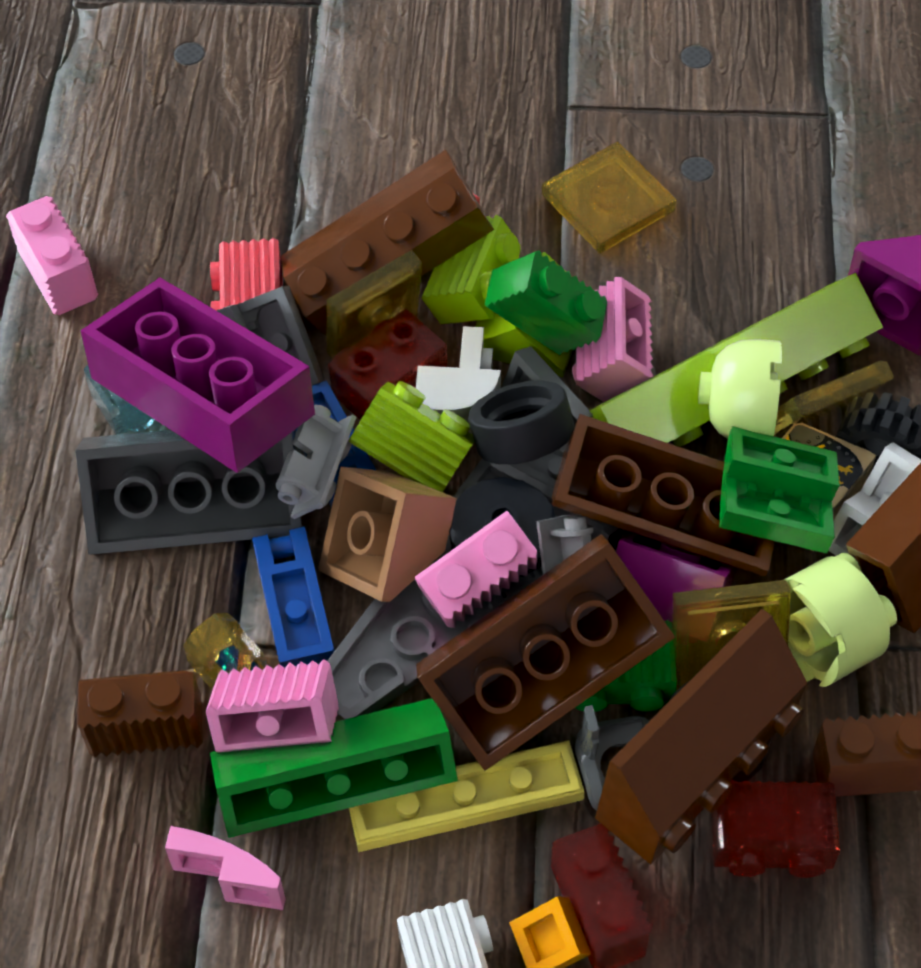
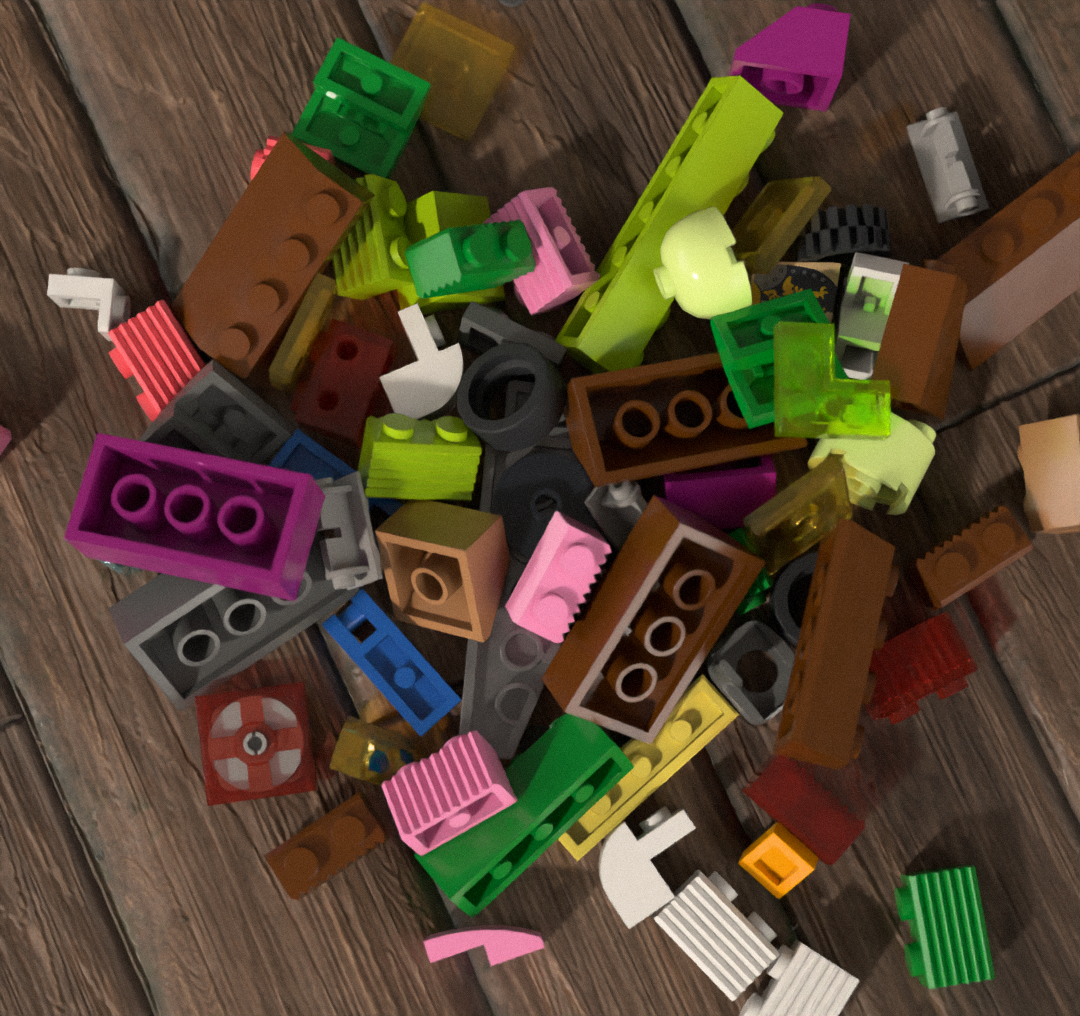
camera: 30 degrees left, 25 degrees up
(134, 605) = (256, 743): none -> clear red piece
(220, 217) = (85, 290): none -> white bracket
(404, 863) = (626, 866): none -> white brick
(527, 186) = (362, 110): none -> green slope
(792, 522) = (812, 400): none -> clear neon green plate

